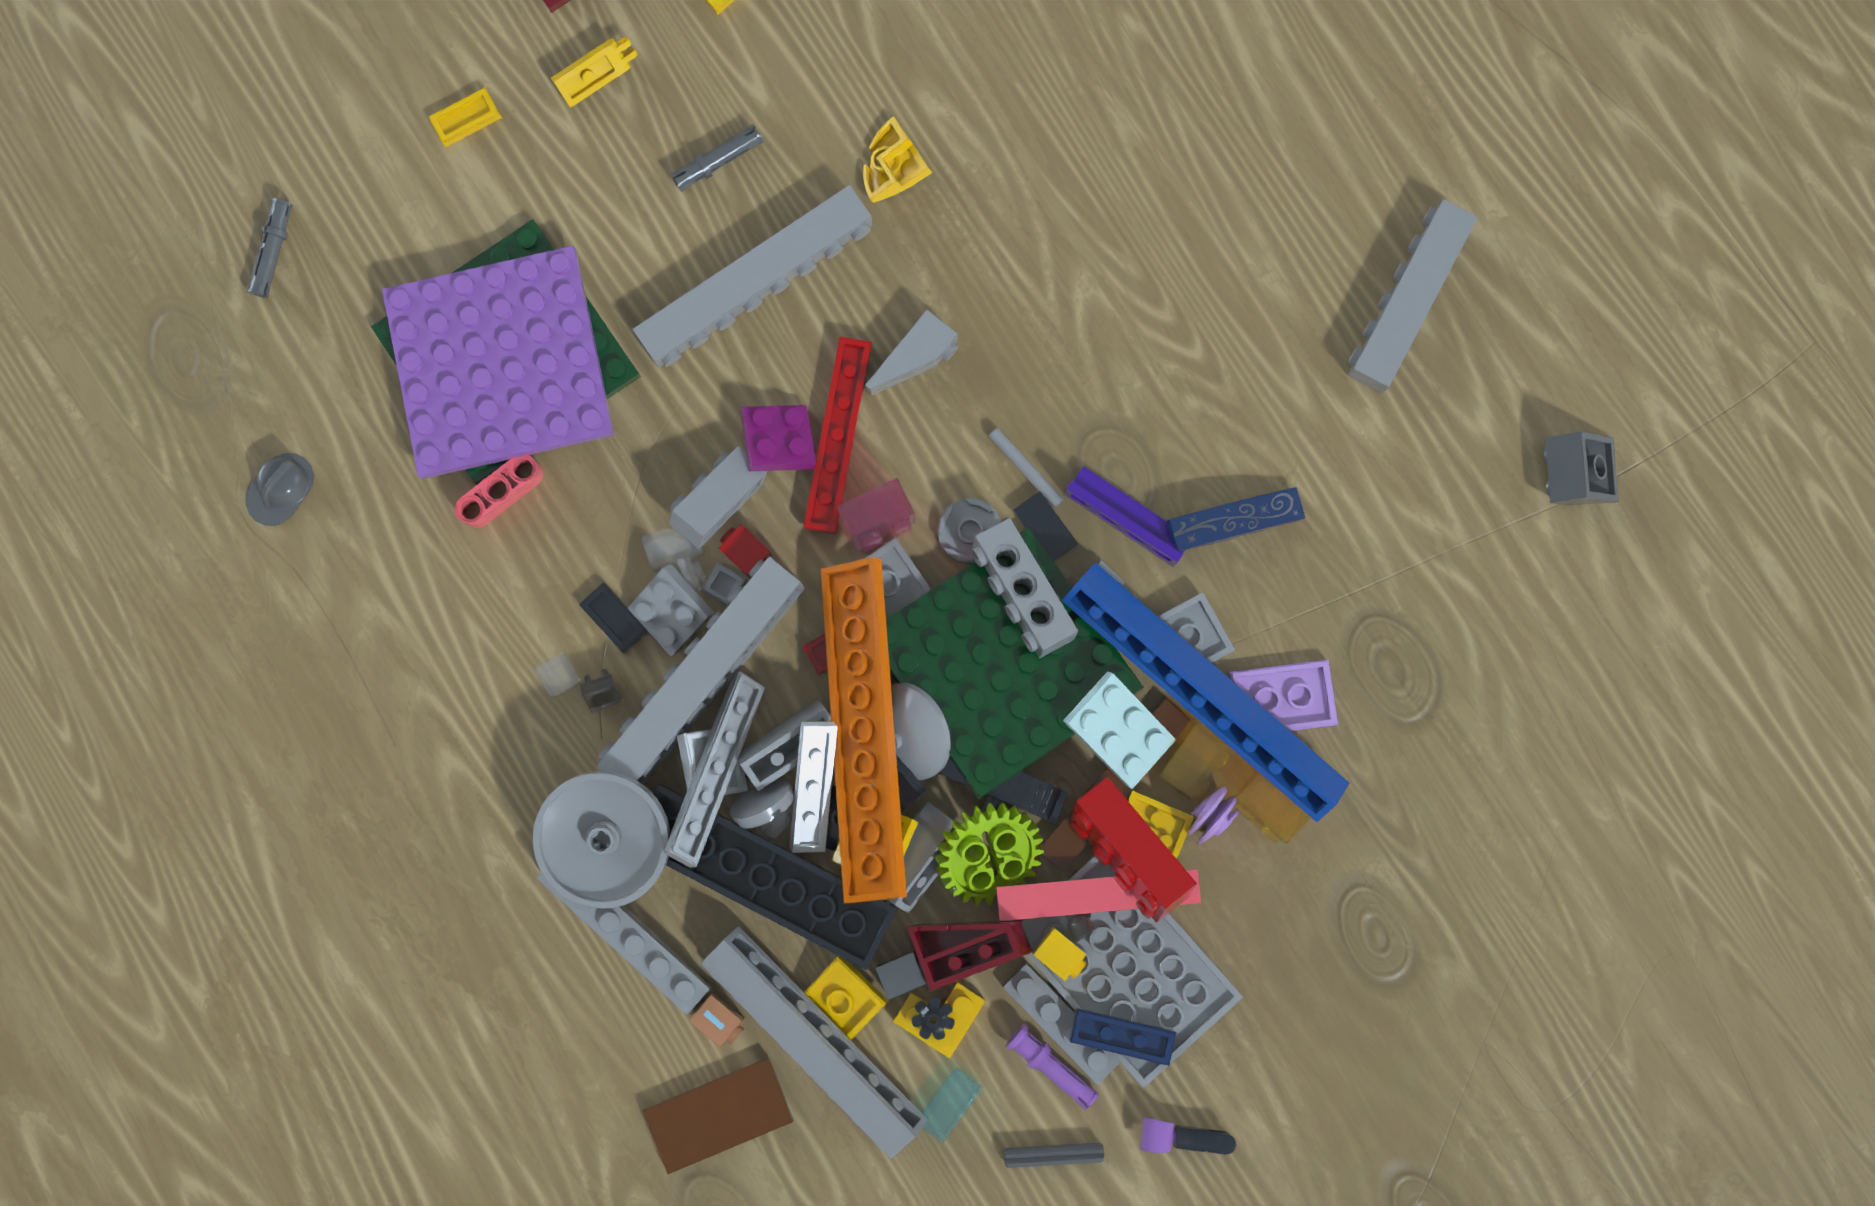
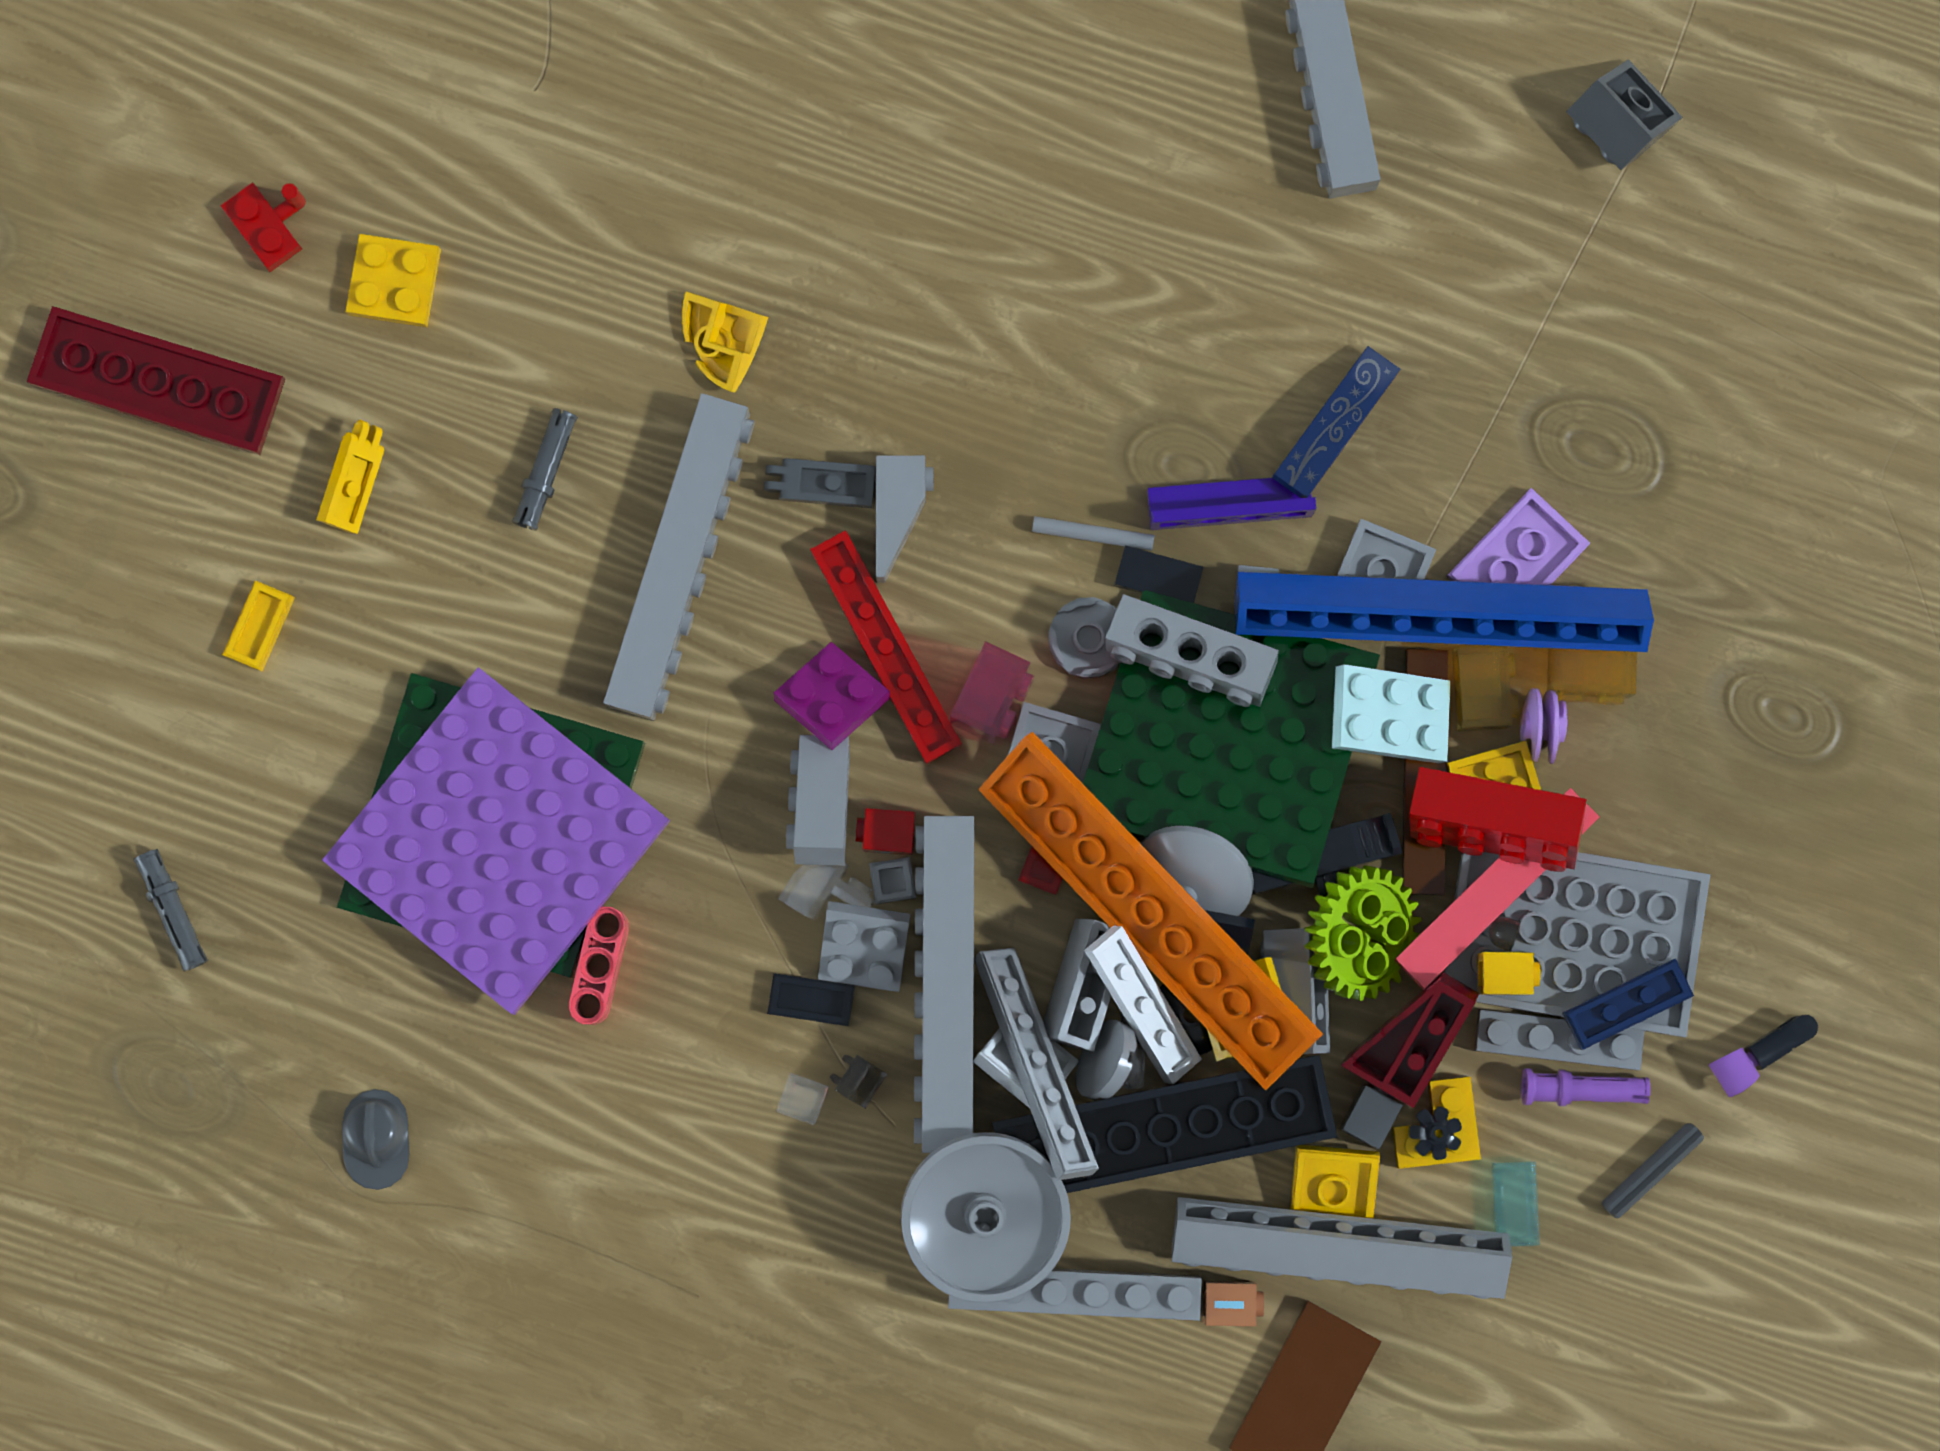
camera: 40 degrees left, 0 degrees up
(881, 301) = (823, 482): none -> dark grey hinge

